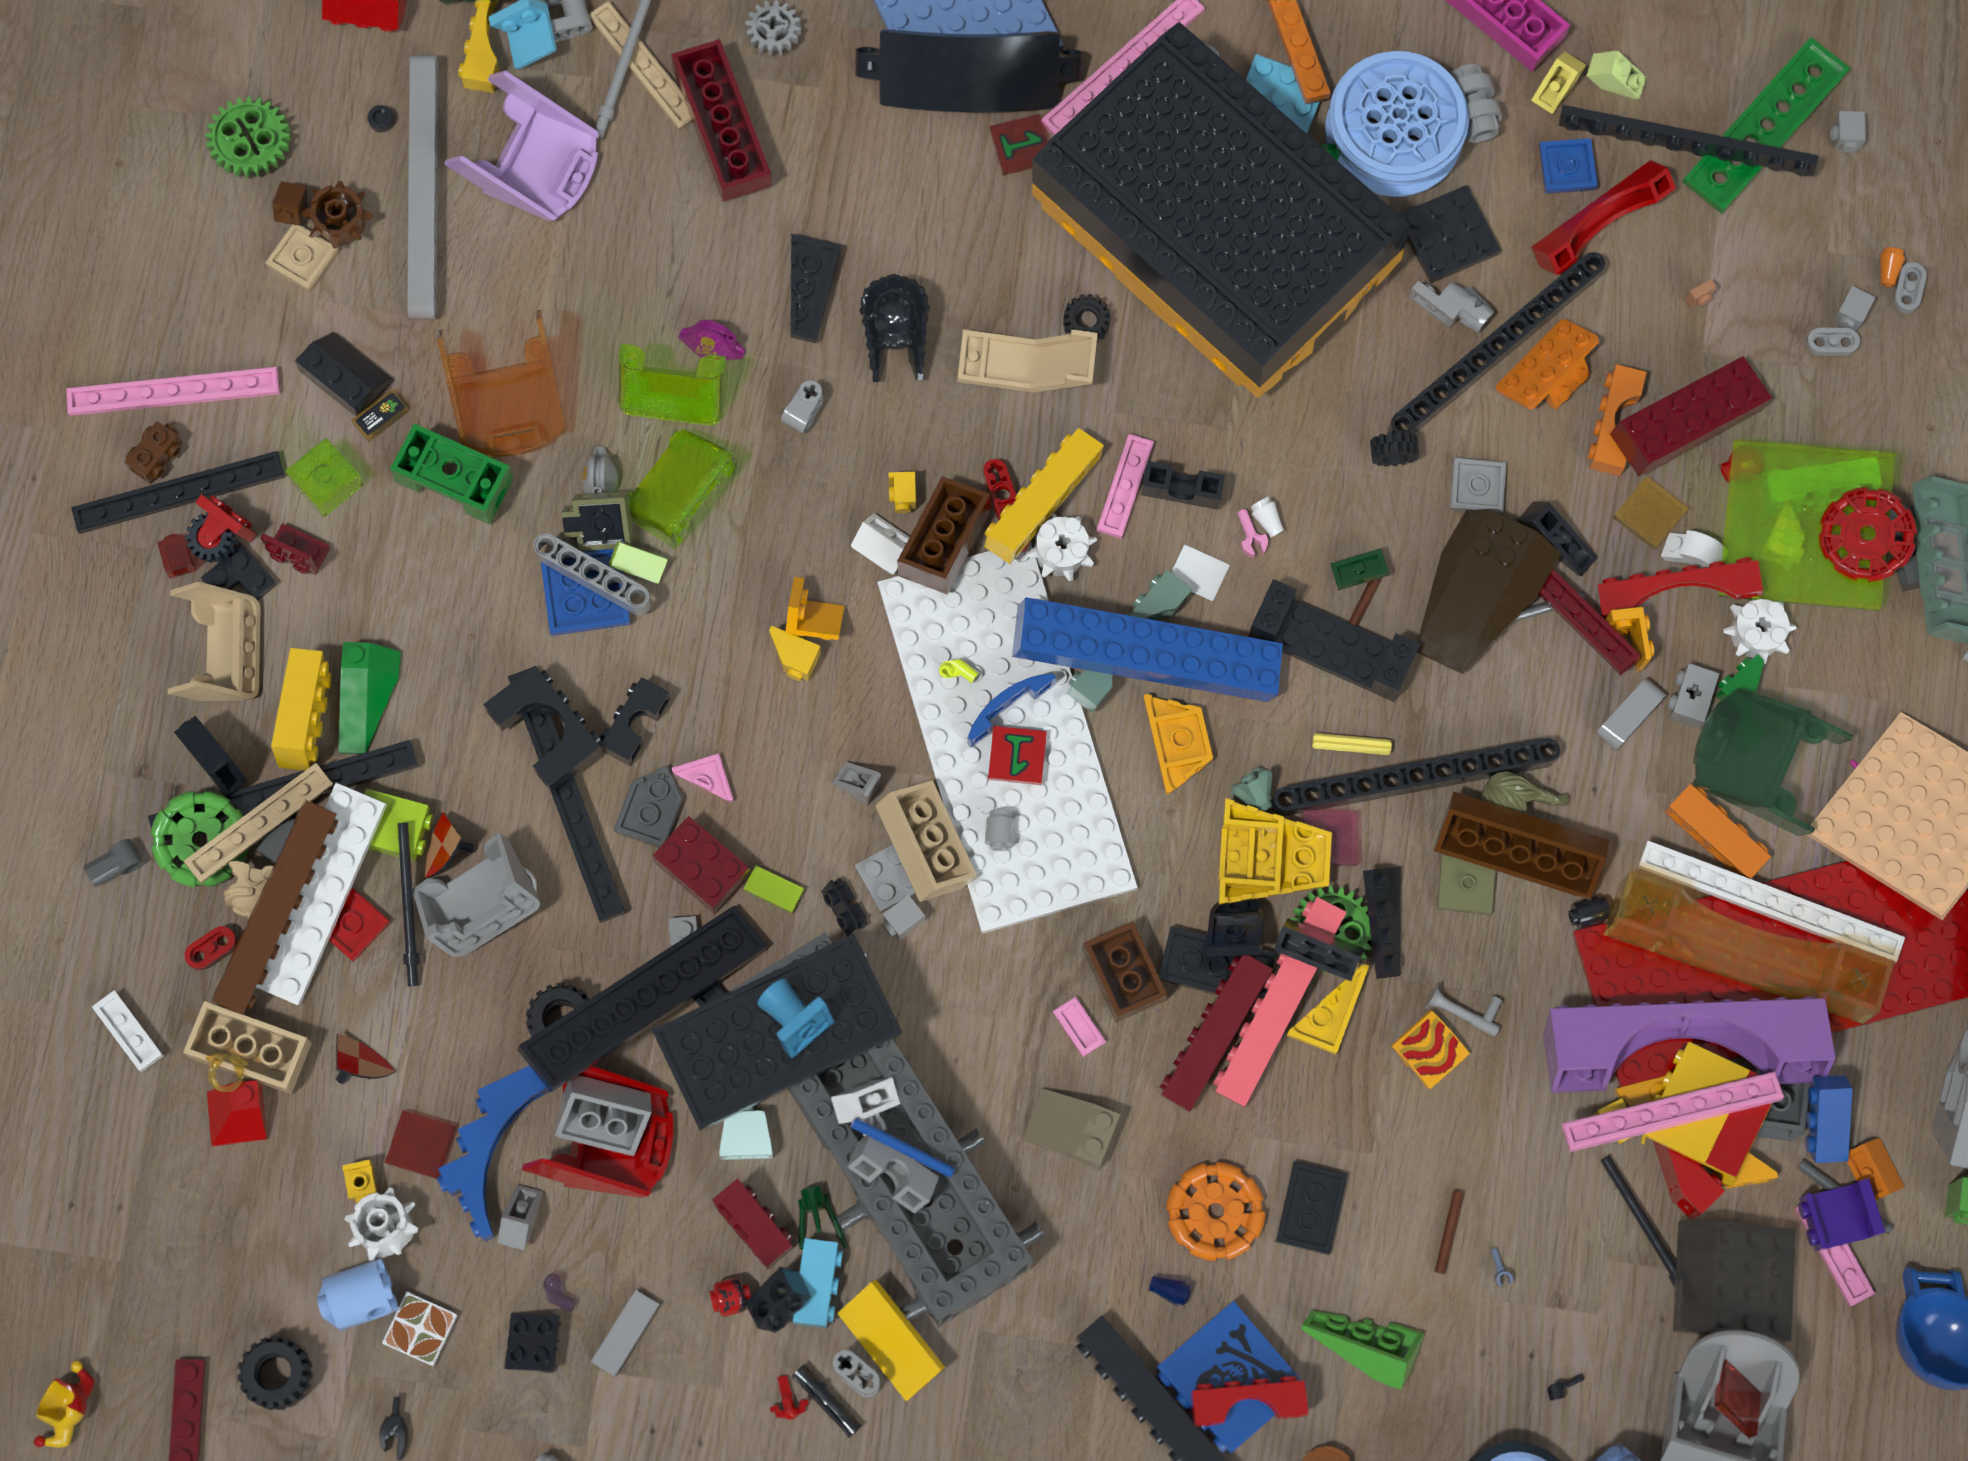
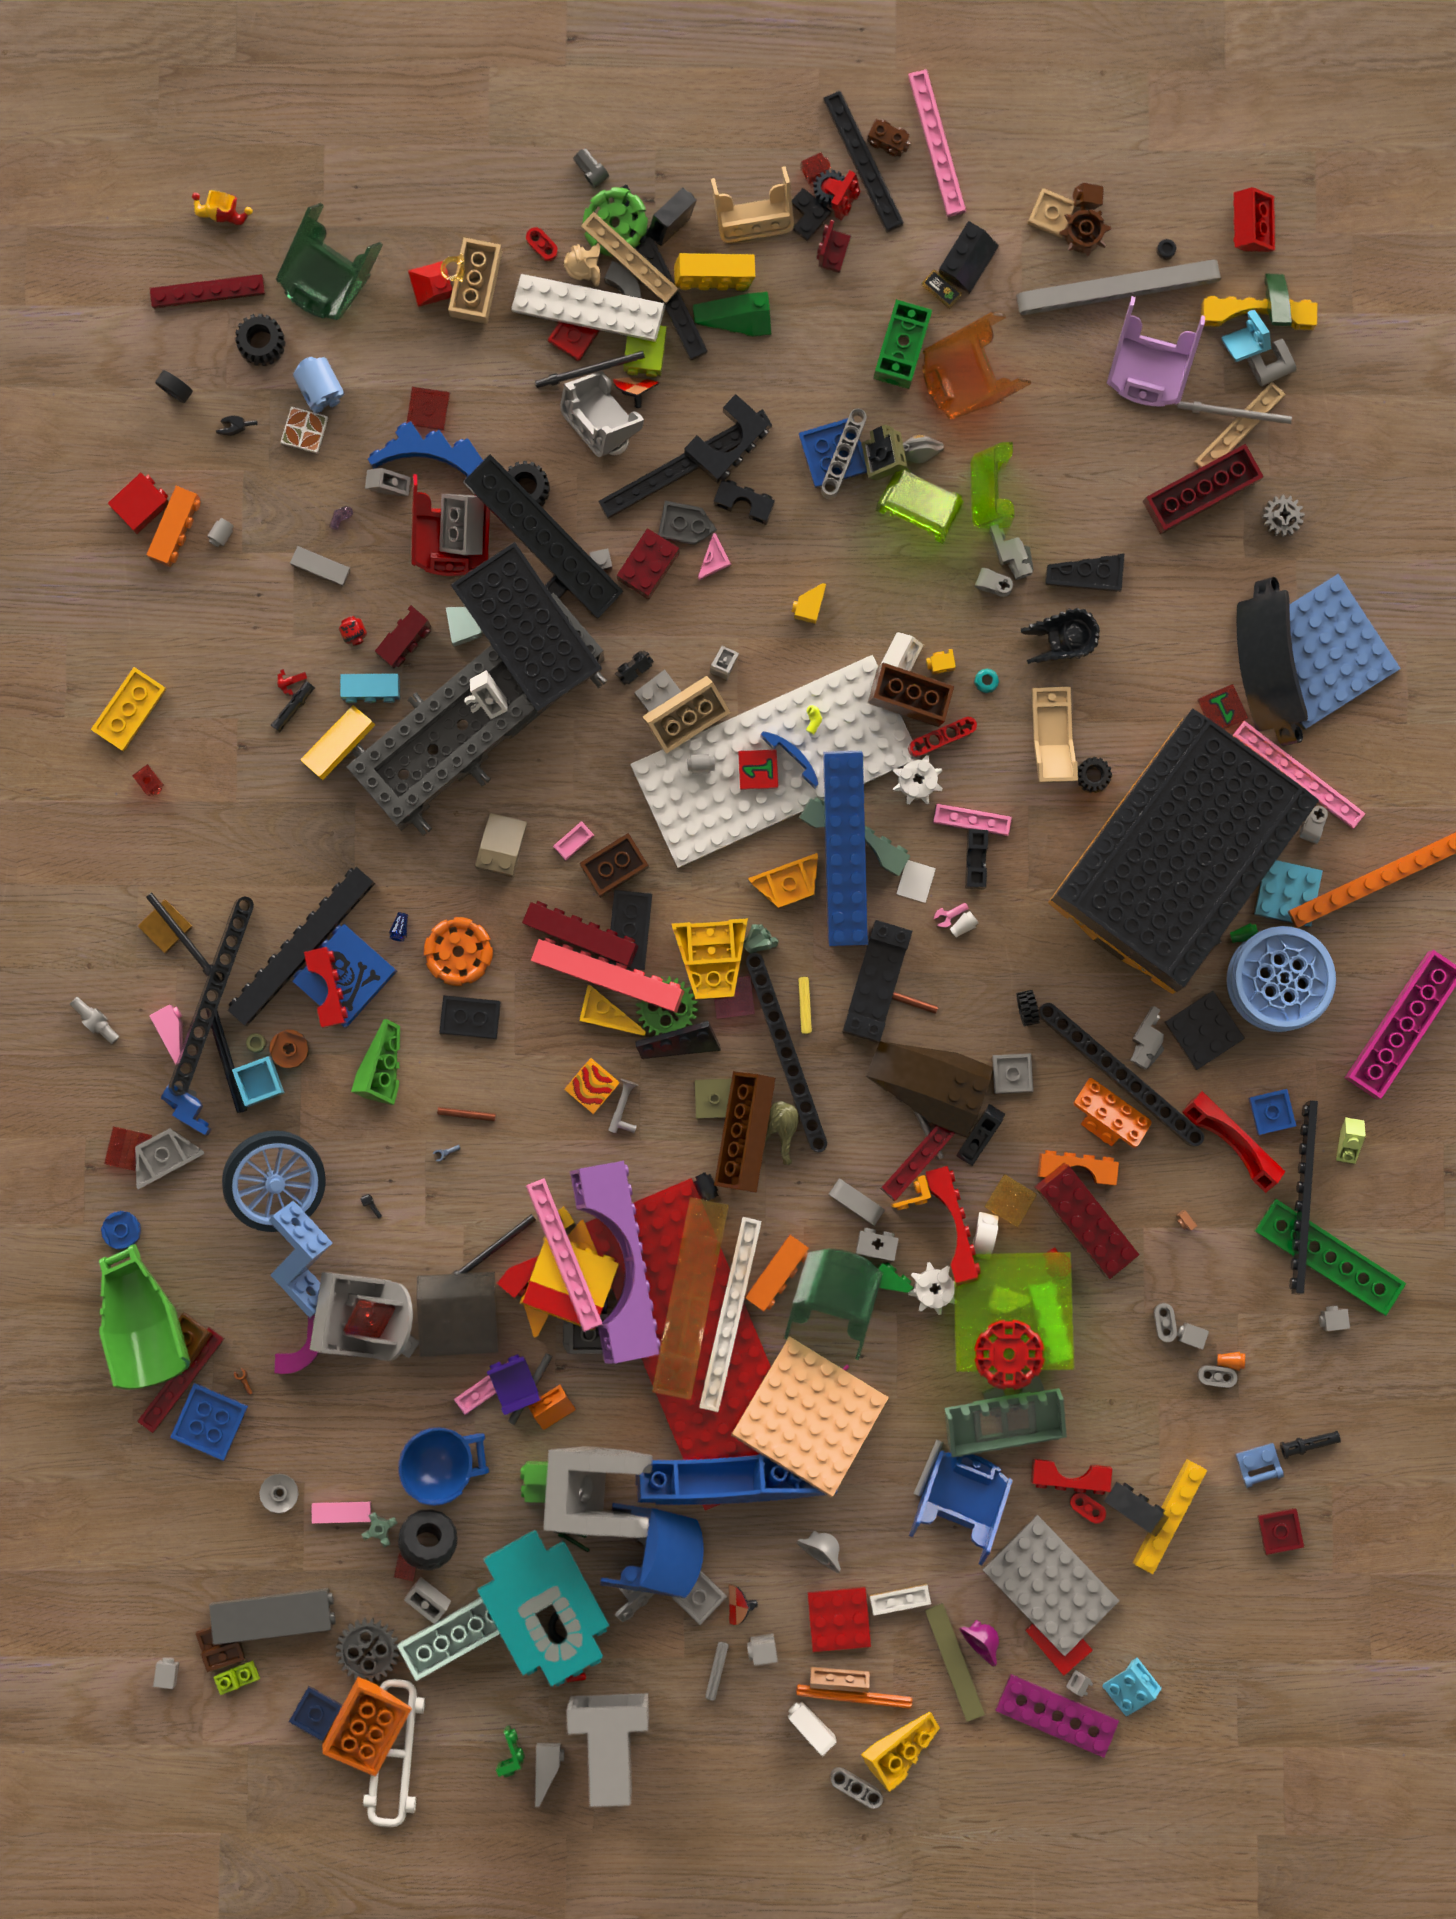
camera: 80 degrees right, 10 degrees up
(127, 1031) = (476, 200): white plate -> none
(199, 1270) = (319, 276): none -> clear green windscreen
(269, 126) = (1146, 170): bright green gear -> none
(274, 906) = (571, 278): reddish brown brick -> none
(324, 477) = (887, 258): clear neon green brick -> none
(357, 1170) = (396, 379): yellow brick -> none
(359, 1060) = (478, 356): shield -> none
(391, 1235) = (367, 390): white brick -> none
(532, 1342) = (305, 505): black hinge -> none
(638, 562) = (859, 484): tile -> none
(711, 338) = (1033, 511): magenta hat -> none
(765, 377) = (1012, 552): none -> light grey plate
(773, 889) = (639, 617): lime tile -> none
(778, 1299) = (353, 662): black brick -> none
(799, 1022) = (535, 632): dark azure plant -> none
(812, 617) = (837, 611): light orange bracket -> none
(813, 1201) = (426, 677): dark green plant -> none
(848, 1374) = (317, 720): light grey connector -> none
(902, 1147) = (457, 723): blue bar -> none
(903, 918) = (631, 708): light grey brick -> none
(912, 1180) = (439, 736): light grey arch -> none
(936, 449) = (986, 688): none -> teal piece
(1043, 496) = (951, 760): yellow brick -> none
(1235, 930) = (653, 937): black tile -> none
(1319, 949) = (641, 993): black brick -> none
(1359, 569) = (934, 994): dark green plate -> none
(1482, 111) = (1302, 1039): light grey piece -> none
(1558, 82) = (1338, 1097): light yellow slope -> none
(1829, 1119) = (579, 1368): blue brick -> none

